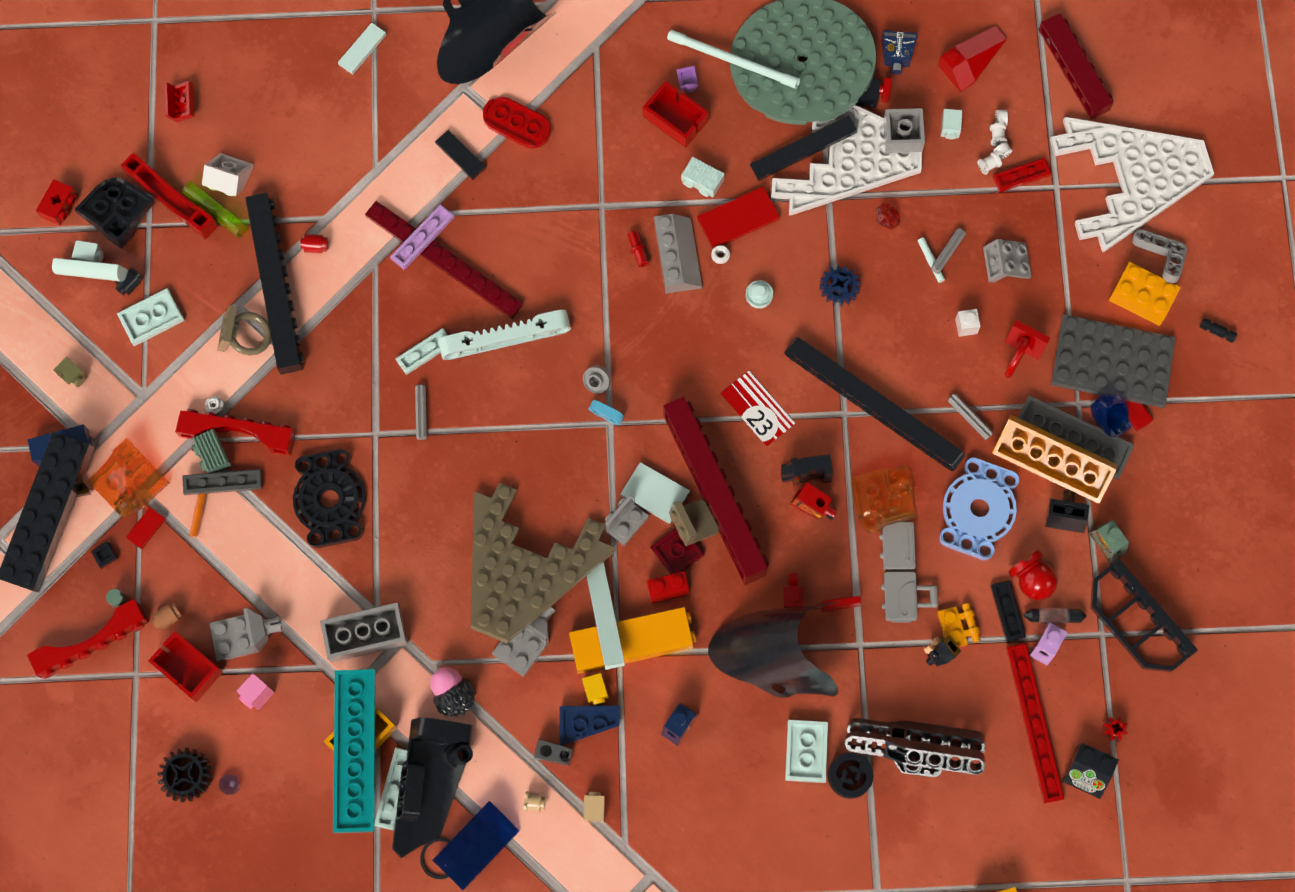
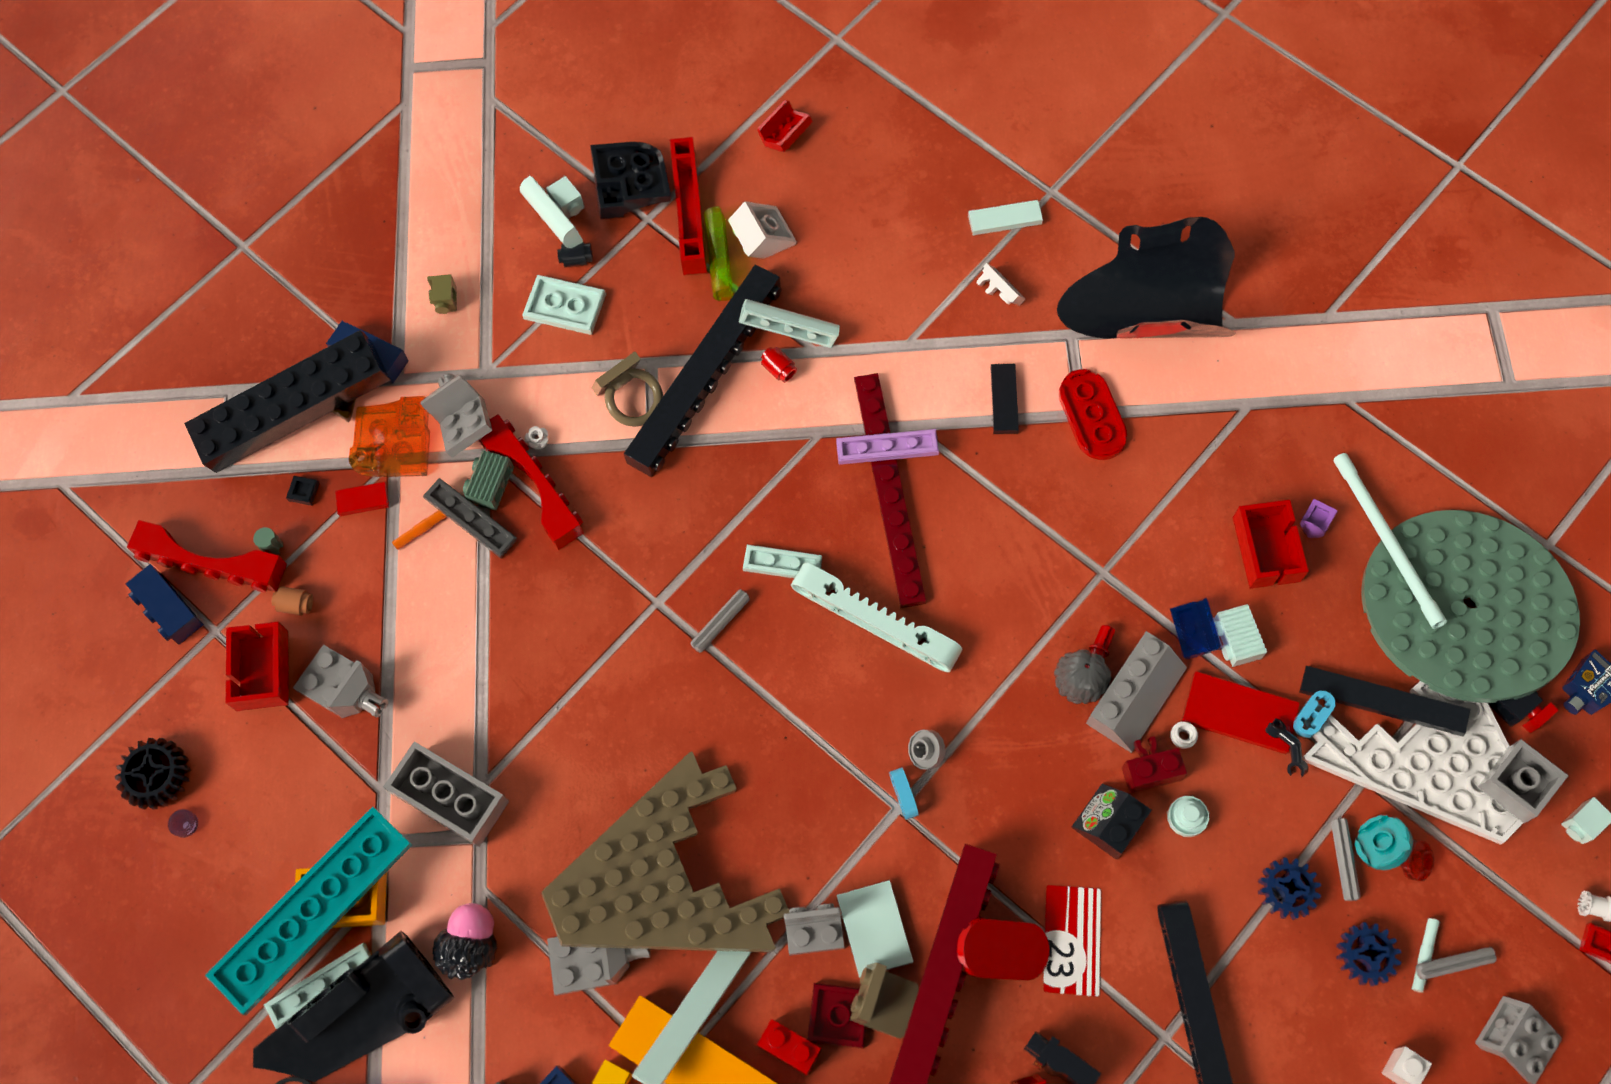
camera: 45 degrees right, 5 degrees down
(57, 202) = (586, 129): red brick -> none
(91, 686) = (163, 605): none -> dark blue brick
(156, 430) = (459, 412): none -> light grey plate
(254, 692) = (289, 754): bright pink brick -> none
(299, 214) = (789, 323): none -> light aqua brick
(329, 479) = (534, 606): black piece -> none
(406, 91) = (998, 281): none -> white plate
(643, 273) = (1077, 681): none -> dark grey hair
(677, 193) = (1196, 628): none -> clear blue plate
(720, 285) = (1153, 769): none -> dark red brick
(723, 330) = (1111, 819): none -> black slope
(729, 440) = (1003, 949): none -> red tile
(764, 210) = (1278, 730): none -> black arm
(771, 186) = (1309, 710): none -> medium azure beam
(854, 247) = (1345, 859): none -> light grey axle
(864, 221) = (1384, 842): none -> teal tile
(903, 275) = (1370, 966): none -> dark blue gear

